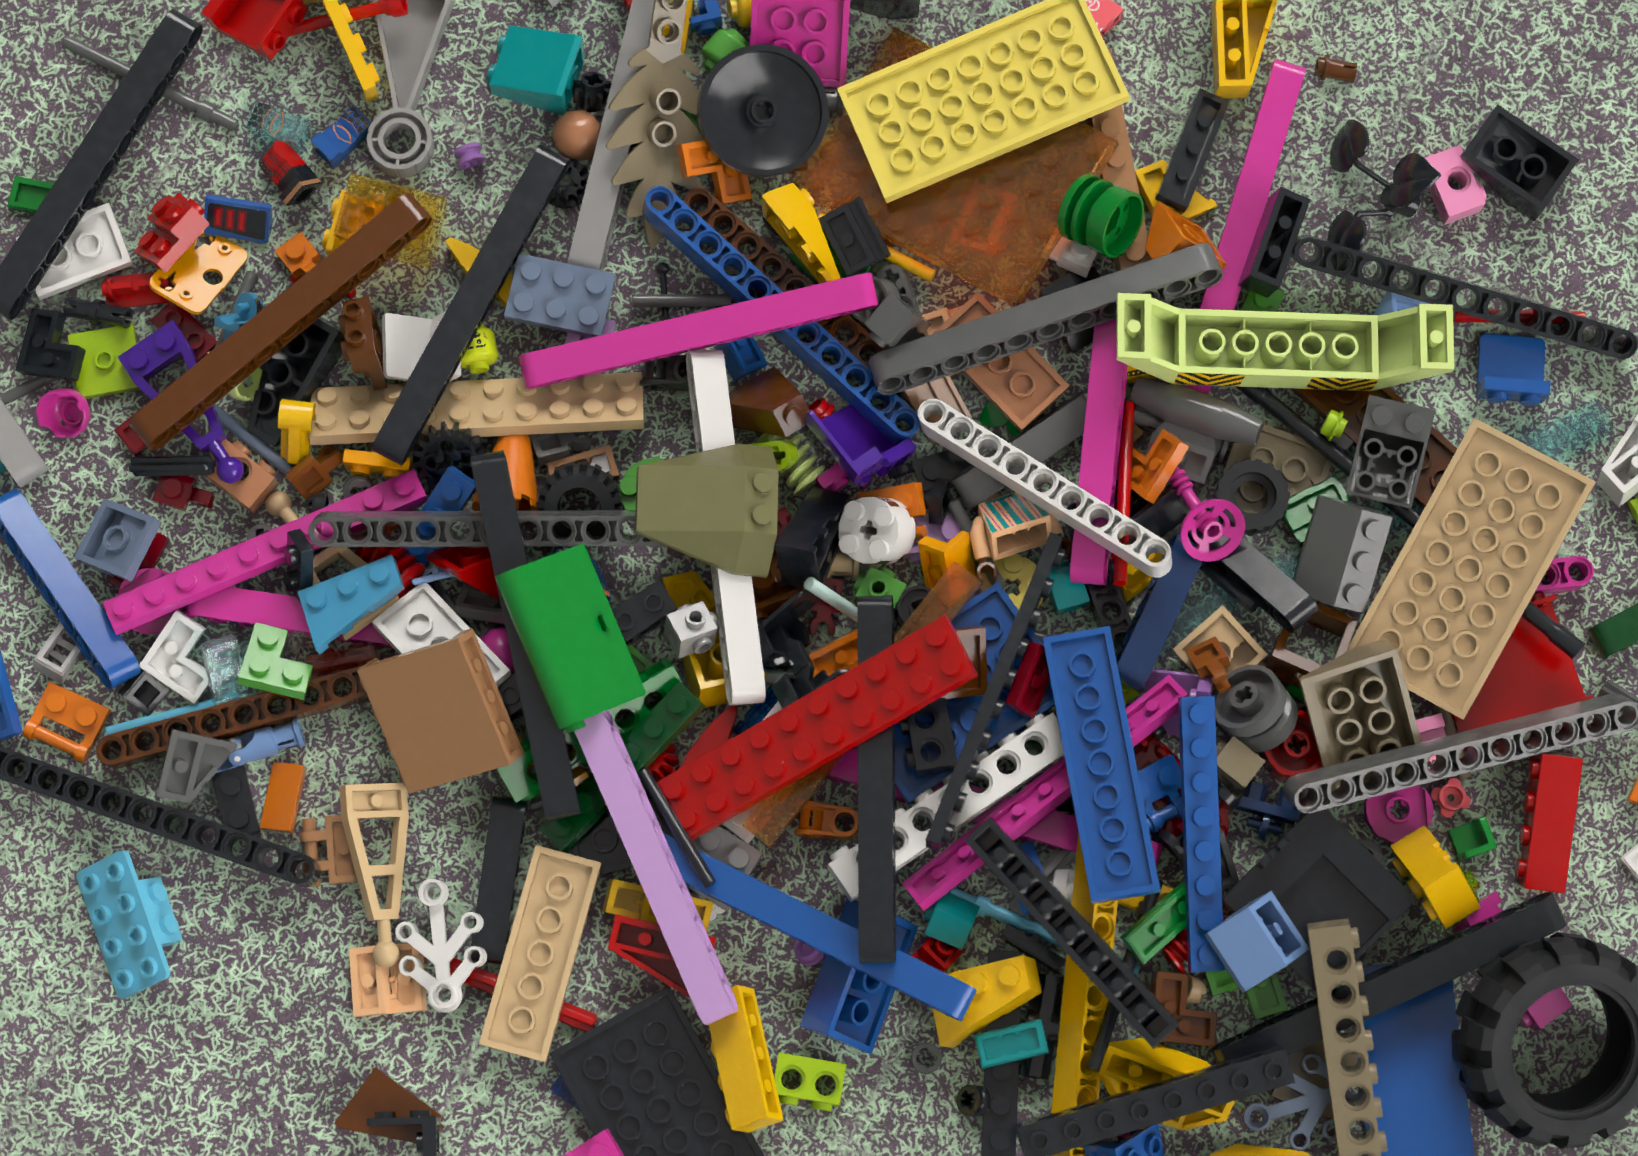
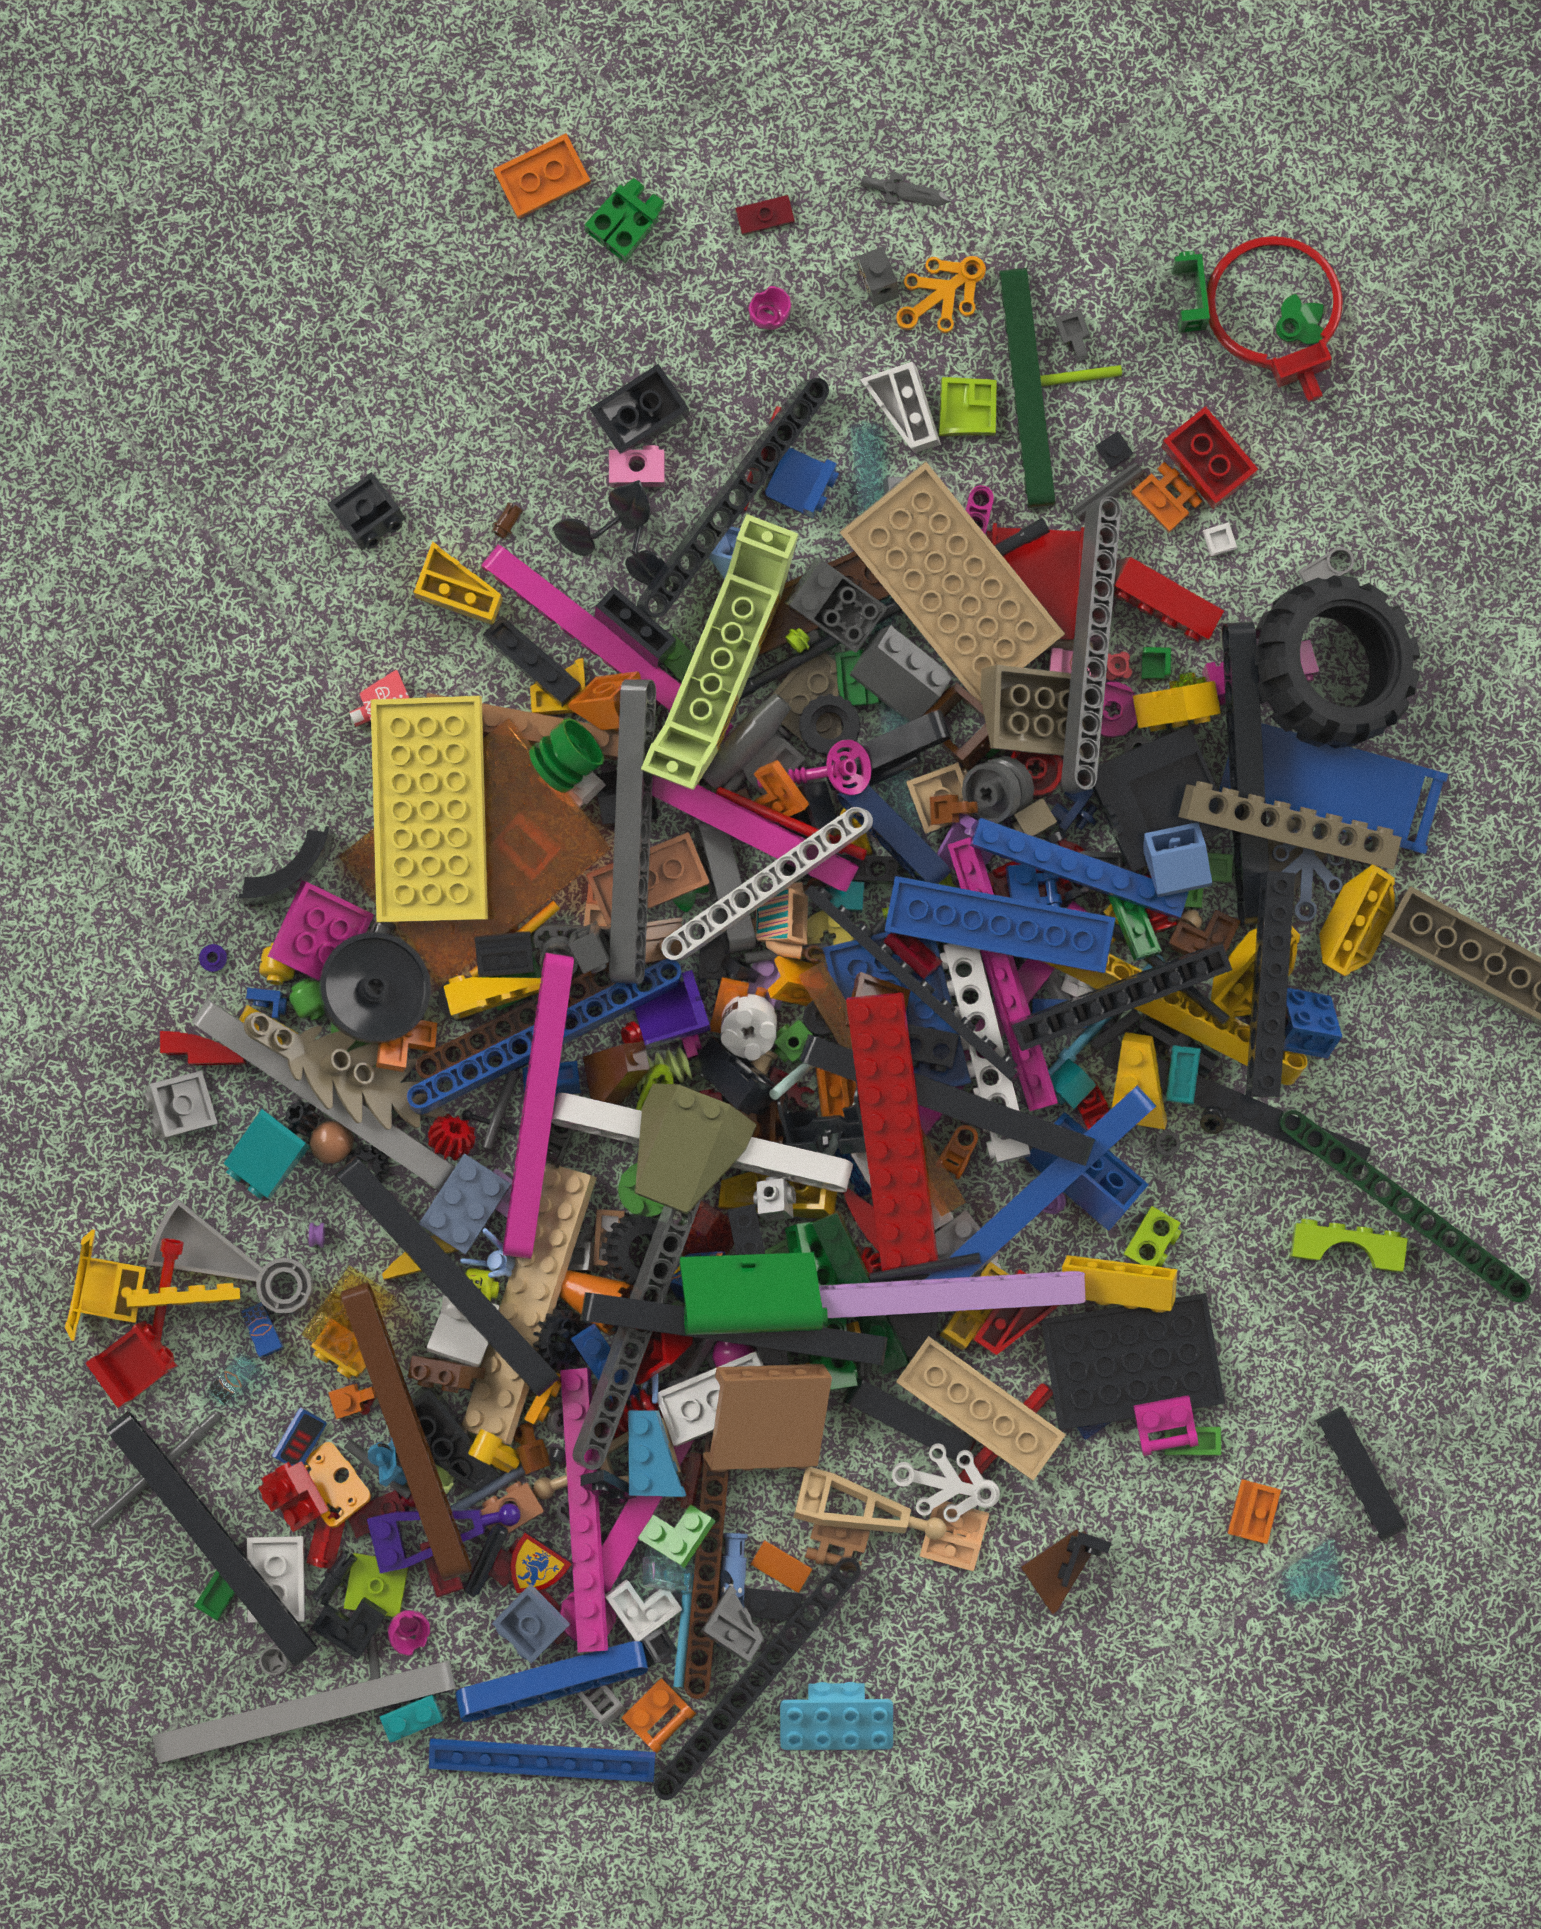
camera: 60 degrees left, 5 degrees up
(187, 522) = (536, 1564): none -> shield
(289, 173) = (277, 1384): leg -> none
(508, 361) = (497, 1262): none -> light blue plant
(628, 569) = (709, 1232): none -> clear red slope
(630, 256) = (451, 1136): none -> red gear

